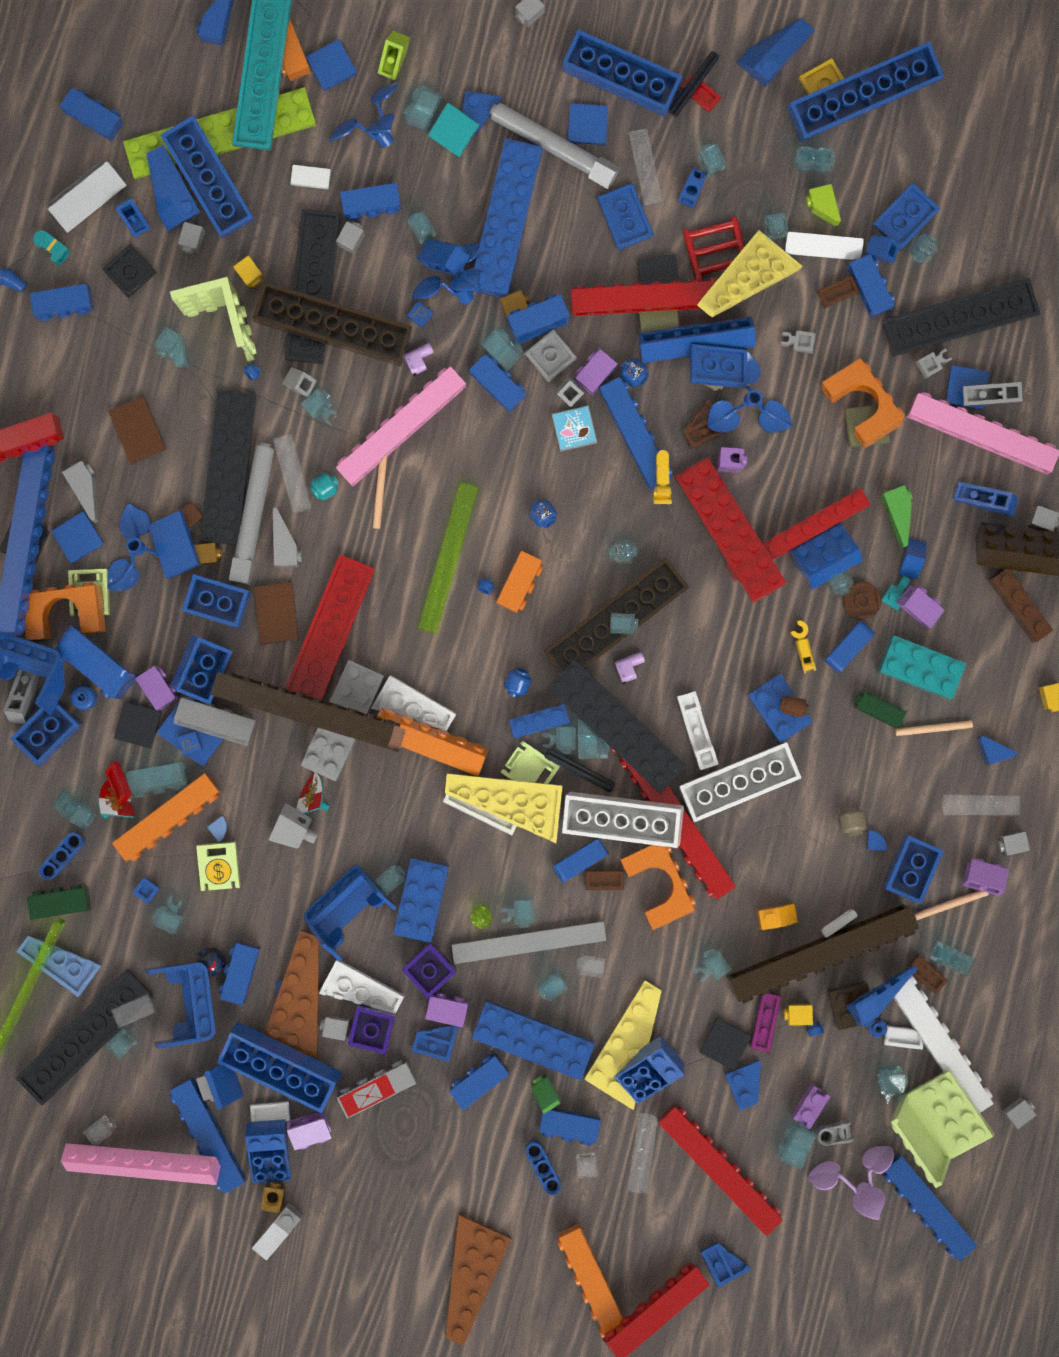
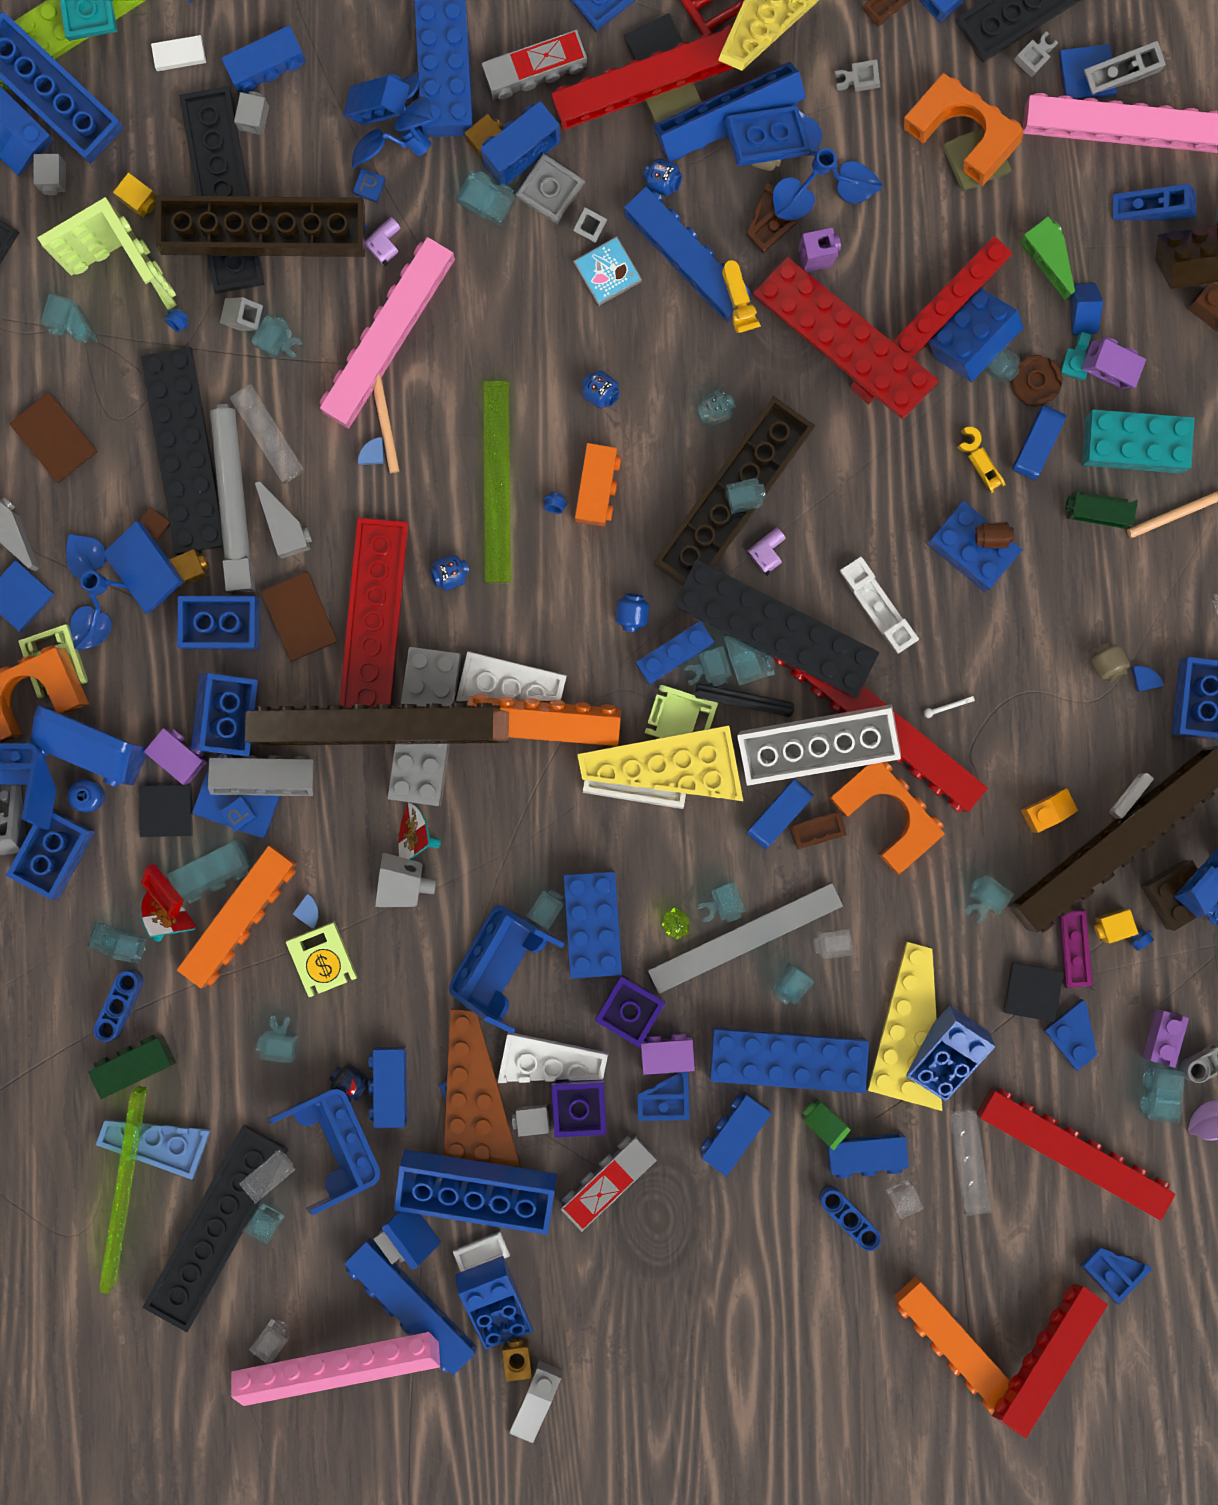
camera: 15 degrees left, 0 degrees up
(146, 890) = (238, 1017): blue plate -> none
(309, 1130) = (537, 1261): brick -> none
(324, 486) = (312, 437): teal head -> none
(364, 510) = (372, 452): none -> medium blue tile
(394, 613) = (449, 572): none -> blue head
(421, 227) = (337, 73): clear light blue brick -> none
(474, 1268) = (800, 1369): dark orange wing -> none
(497, 383) = (493, 241): blue brick -> none
(566, 263) = (535, 65): none -> light grey brick
(595, 372) = (613, 190): medium lavender brick -> none
(711, 819) = (928, 713): none -> white hinge
(739, 782) = (952, 654): white brick -> none

